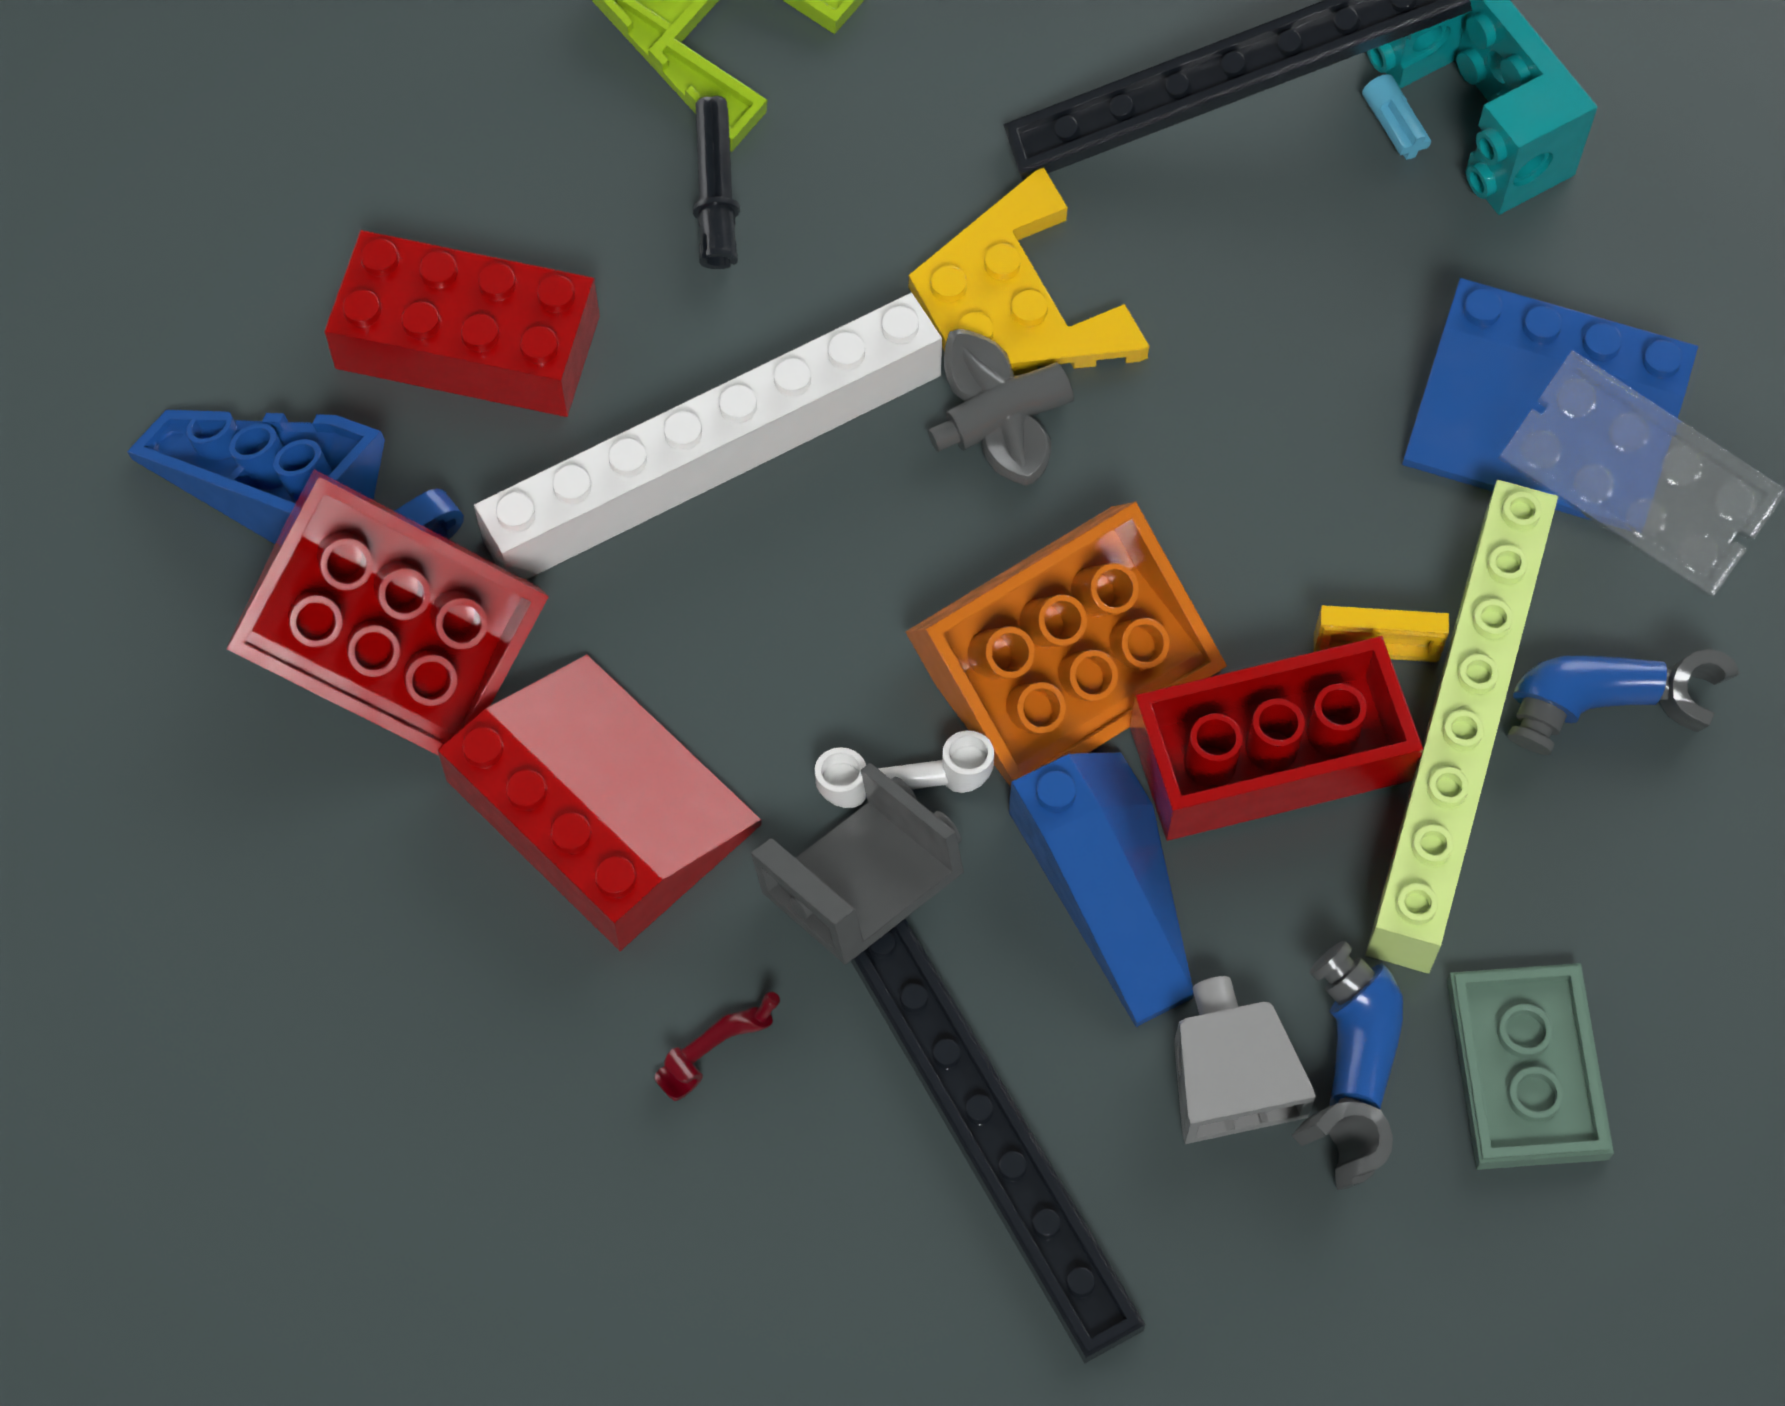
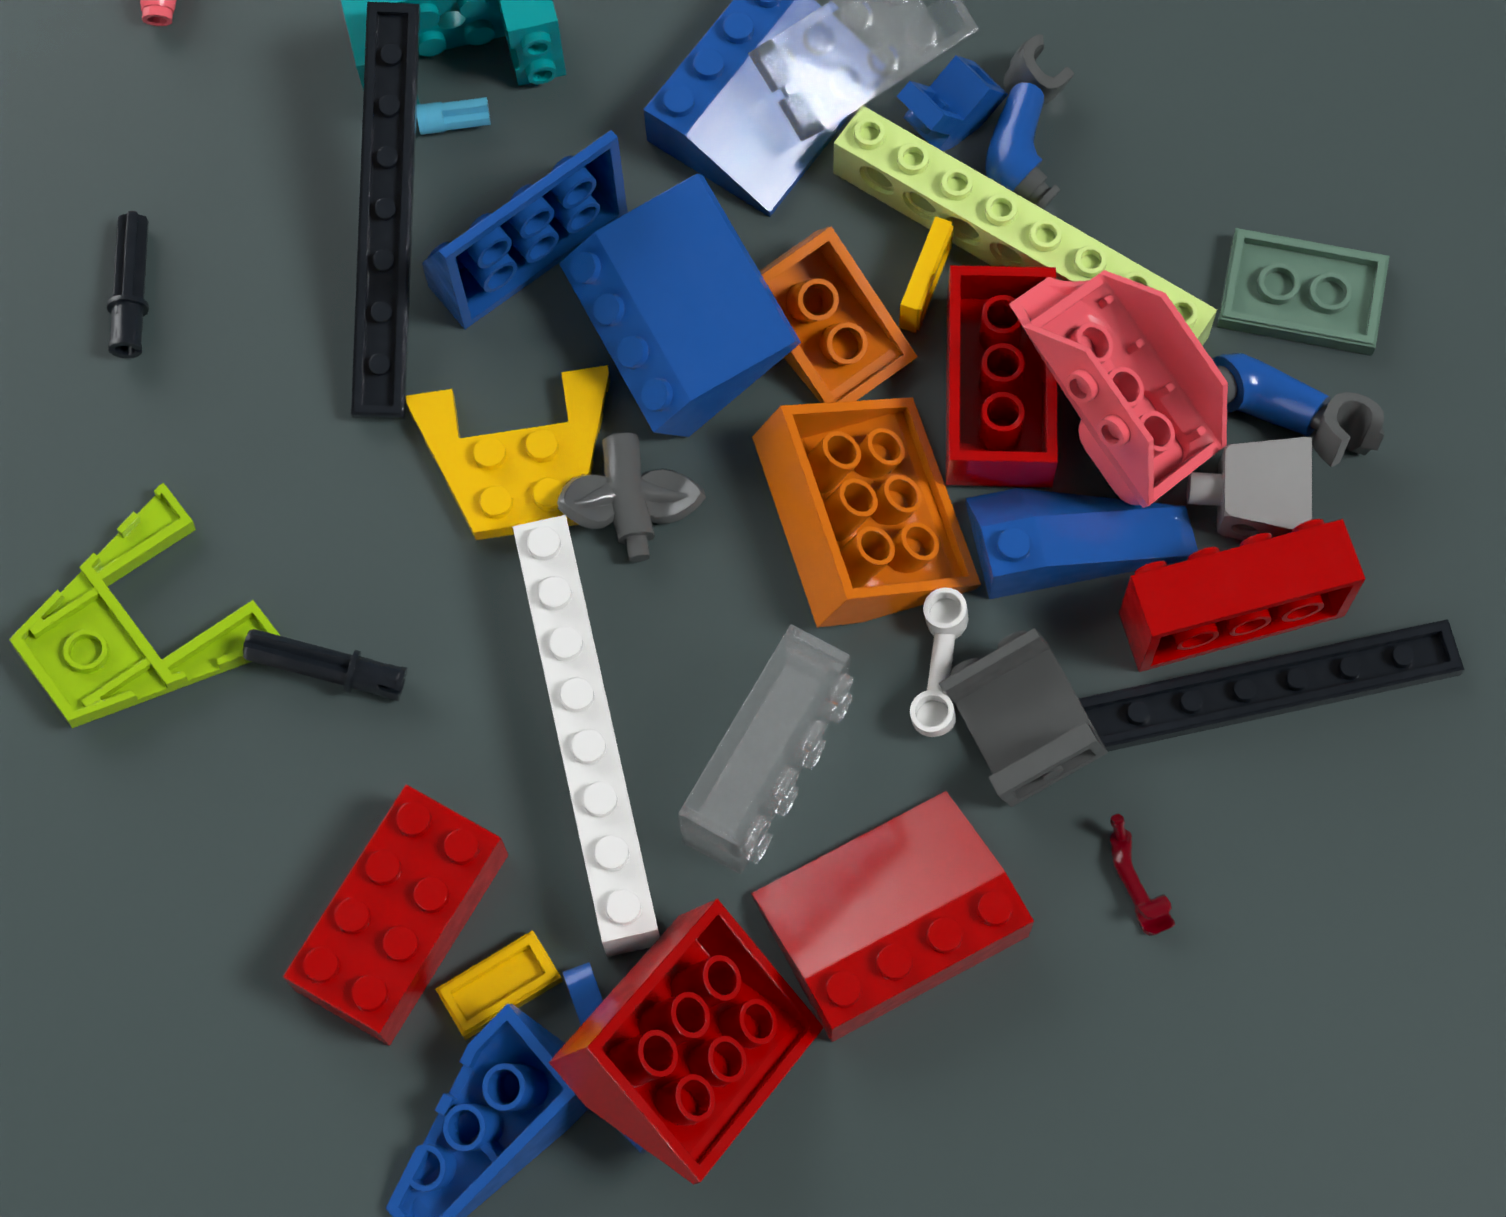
camera: 70 degrees left, 5 degrees up
(425, 444) = (506, 977): none -> yellow tile
(736, 607) = (766, 750): none -> clear piece
(1083, 1057) = (1240, 593): none -> red brick
(1226, 377) = (679, 306): none -> blue slope
(1267, 212) = (529, 232): none -> blue slope
(1282, 544) = (841, 322): none -> orange slope
(1298, 853) = (1133, 375): none -> coral slope
(1611, 606) = (952, 104): none -> blue brick

